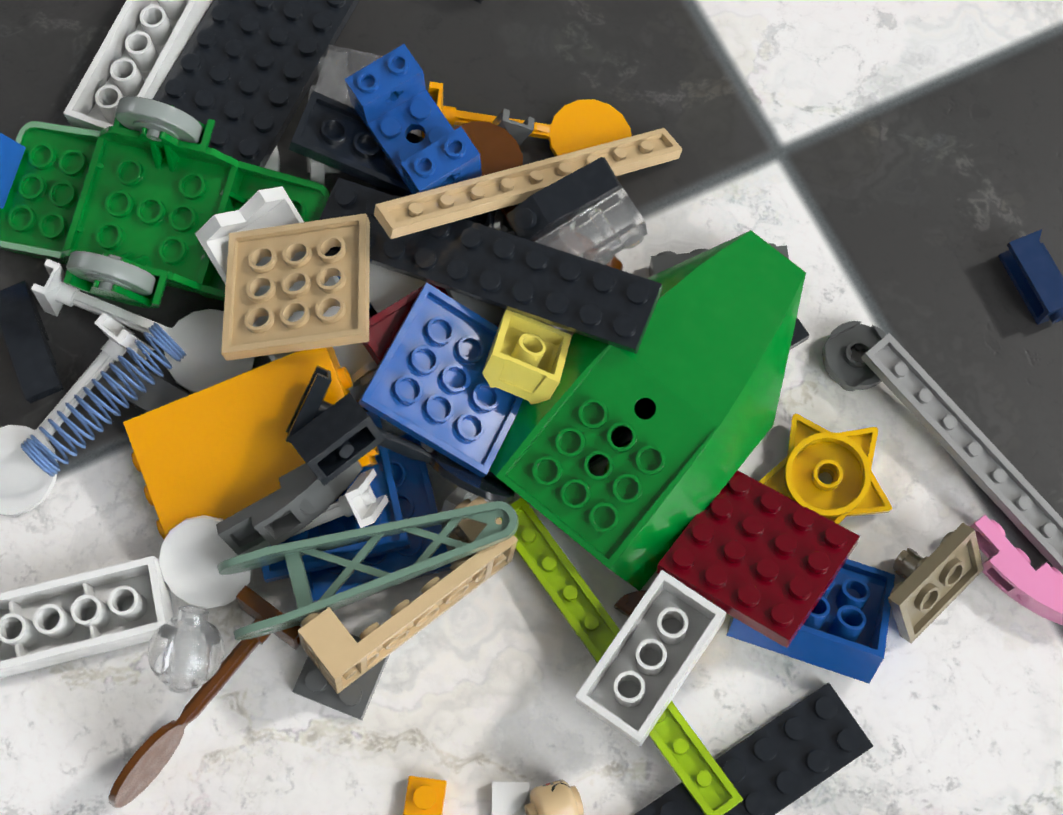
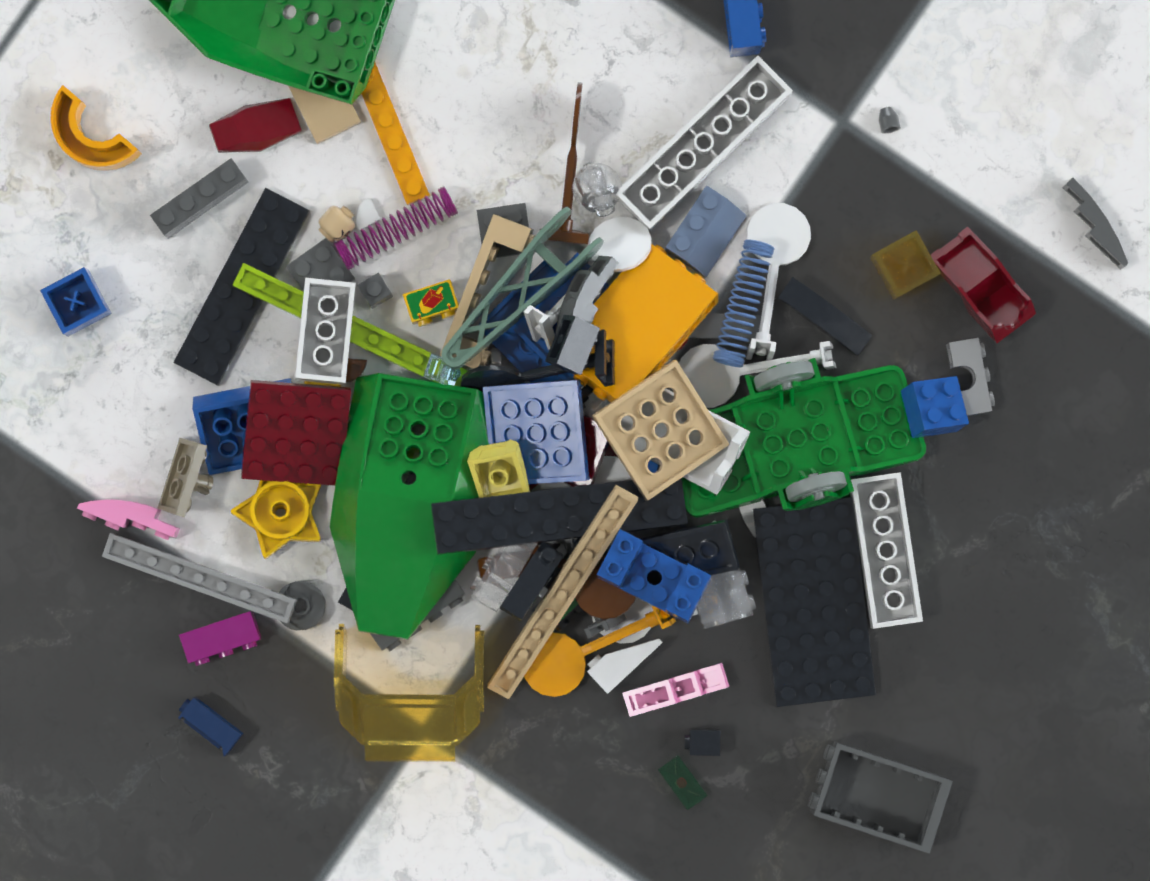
camera: 150 degrees right, 15 degrees up
(95, 526) = (705, 231): none -> sand blue slope
(393, 755) = (449, 209): none -> magenta piece
(470, 44) = (675, 689): none -> bright pink slope
(489, 628) = (431, 303): none -> brick
(522, 93) = (618, 664): none -> white slope
(532, 524) = (445, 375): none -> clear light blue brick
(553, 685) = (375, 290): none -> dark grey brick
(609, 761) = (320, 263): none -> dark grey plate
(796, 141) = (409, 724): none -> clear yellow piece
(980, 368) = (220, 638): none -> magenta brick

